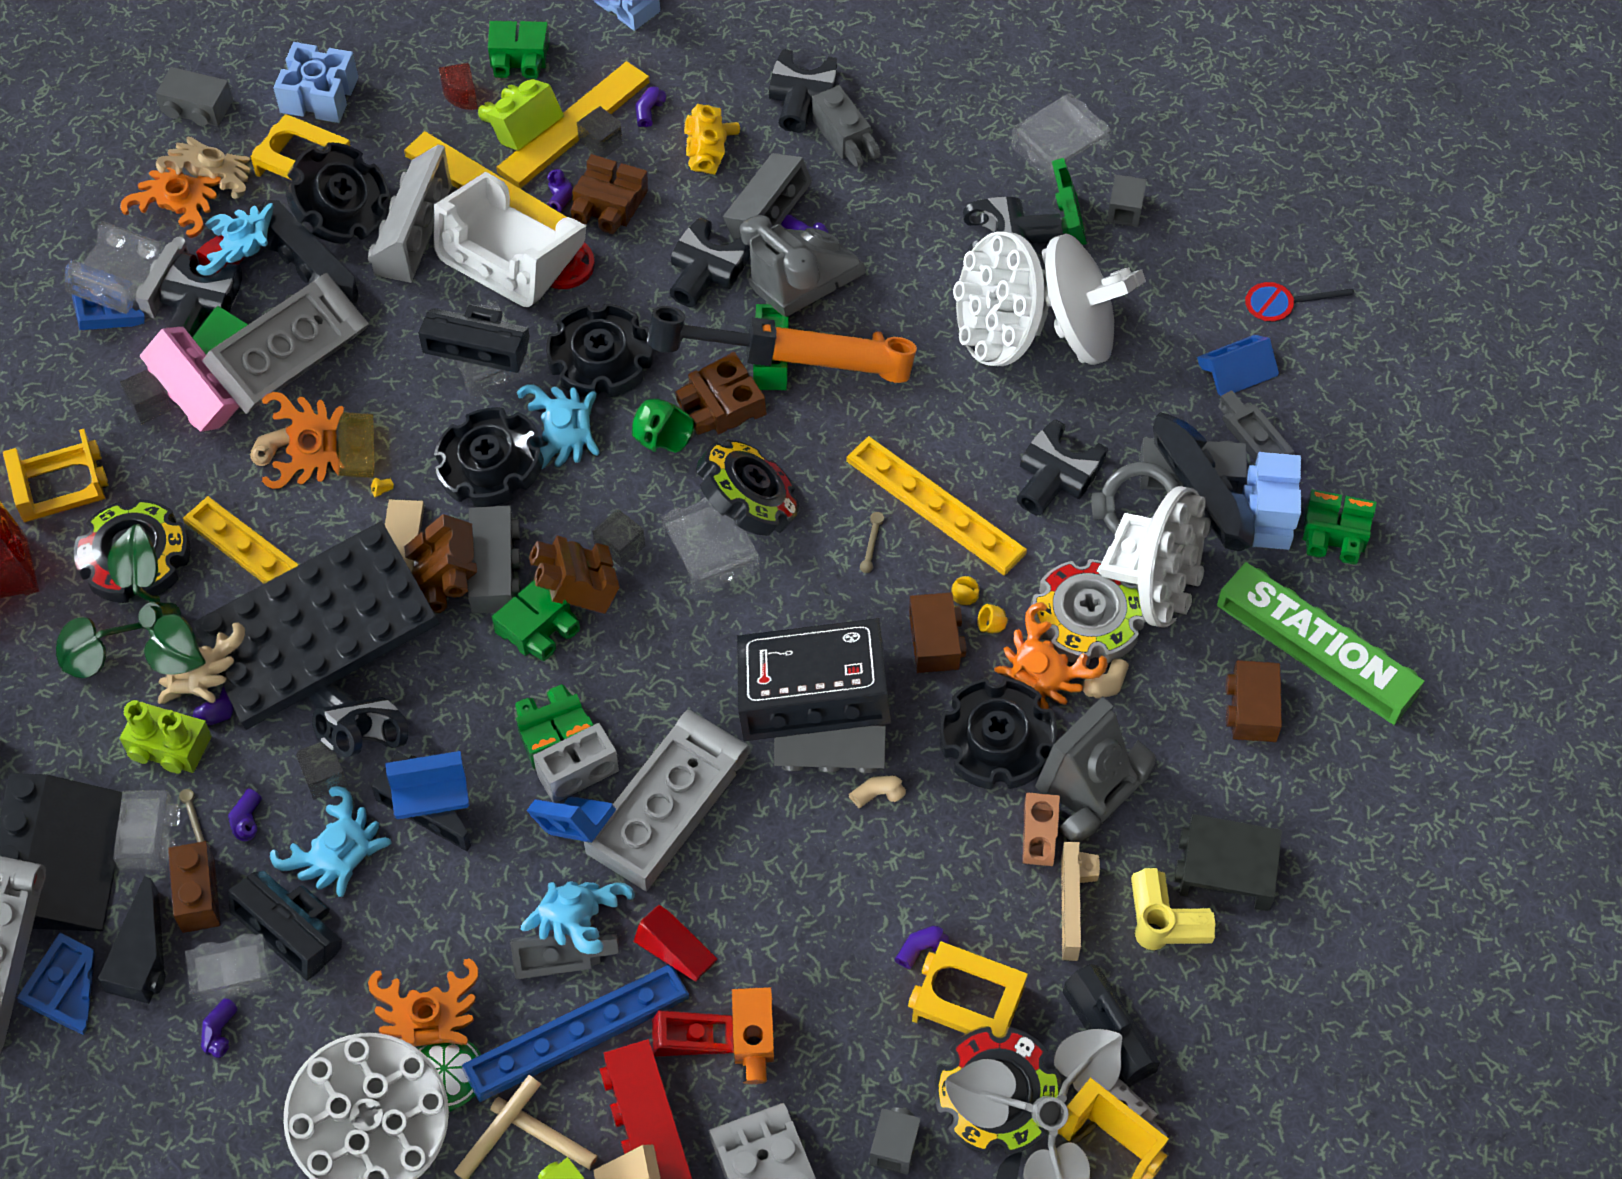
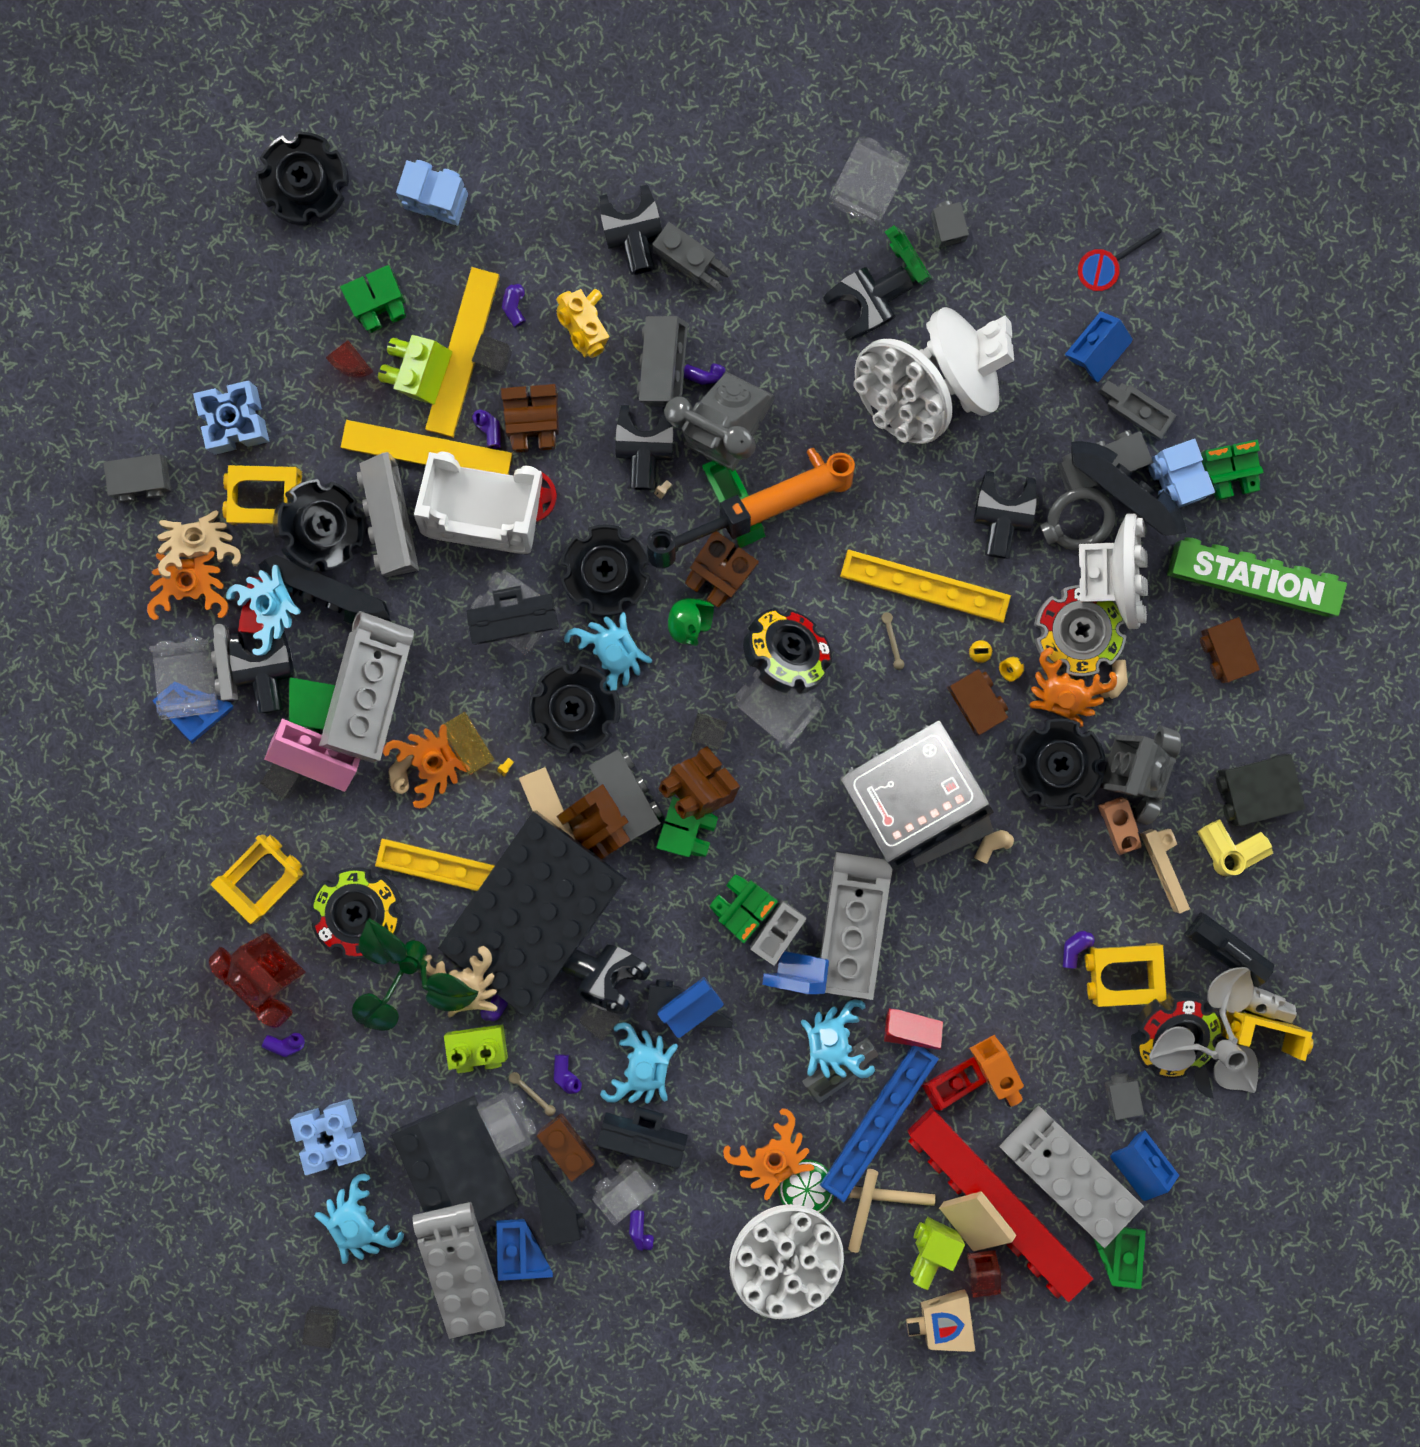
camera: 25 degrees left, 30 degrees up
(701, 310) = (662, 490): none -> tan piece

